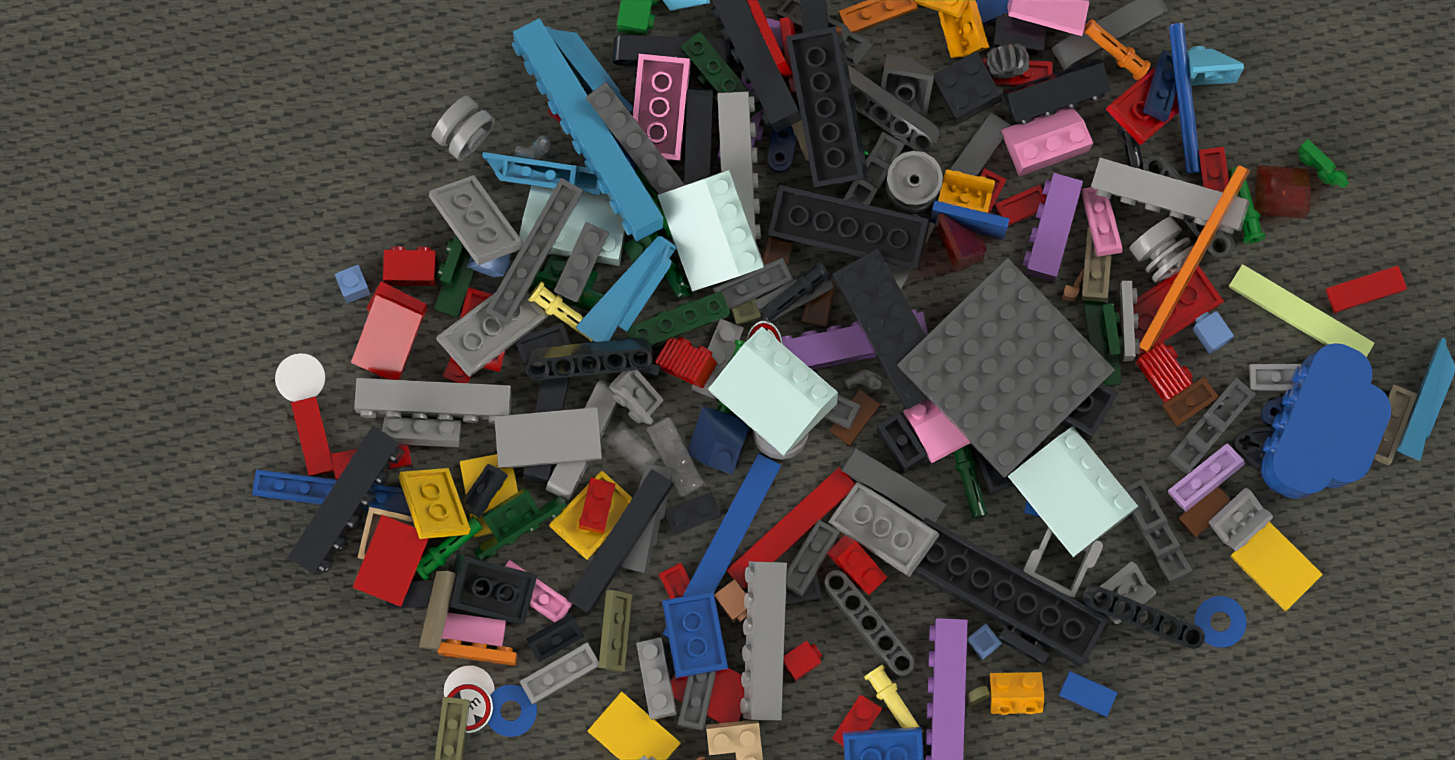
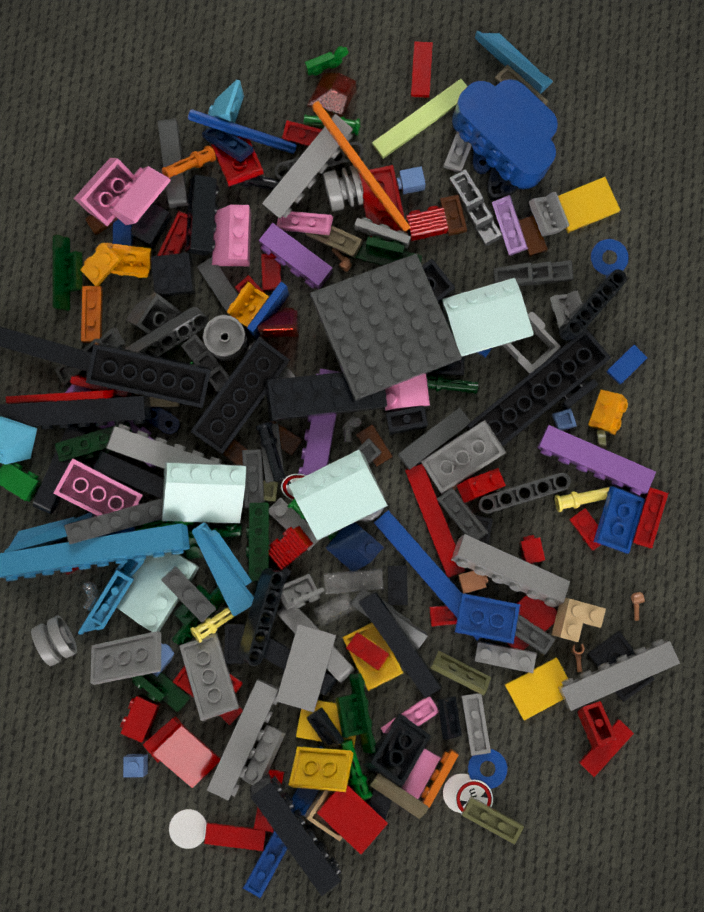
camera: 60 degrees left, 5 degrees up
(534, 251) = (167, 625): dark grey plate -> none
(1007, 61) = (166, 238): dark grey gear -> none

